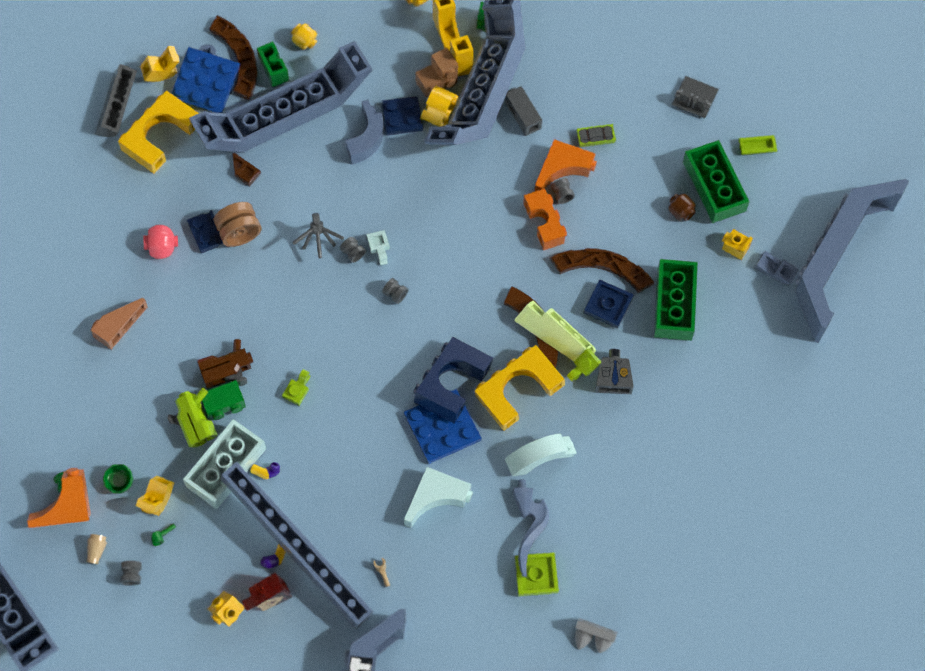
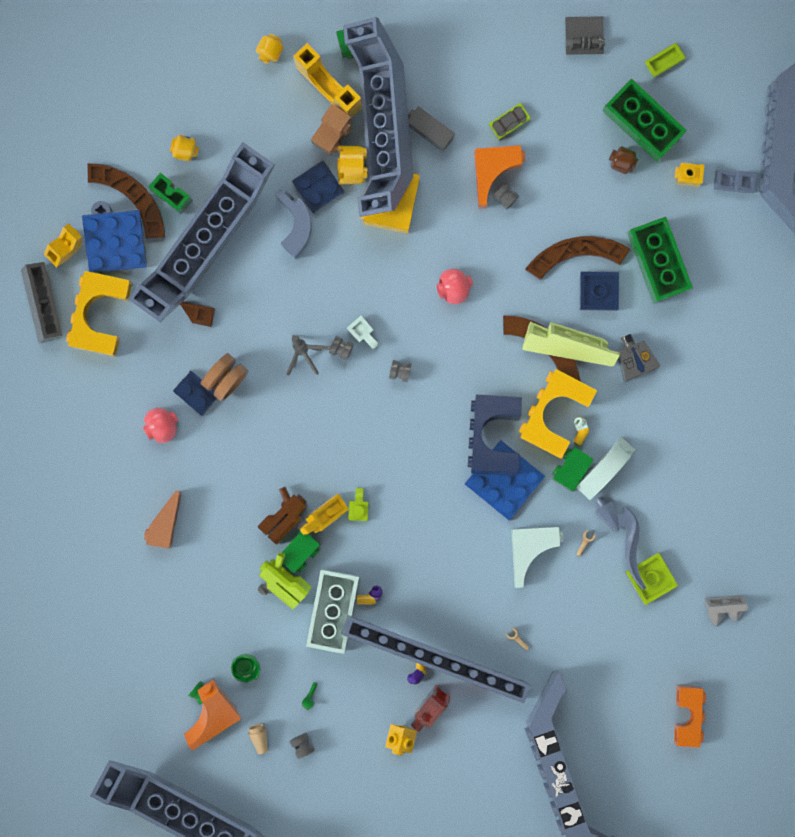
camera: 25 degrees left, 20 degrees up
(156, 496) = (287, 668): yellow brick -> none
(262, 378) = (325, 515): none -> yellow hinge
(459, 163) = (400, 218): none -> yellow arch
(480, 243) = (454, 286): none -> coral plant
(491, 513) = (584, 543): none -> tan hand
(508, 441) = (572, 469): none -> green brick
(535, 415) = (582, 430): none -> arm
(540, 205) = (491, 220): orange arch -> none
(585, 363) = (606, 363): lime plate -> none

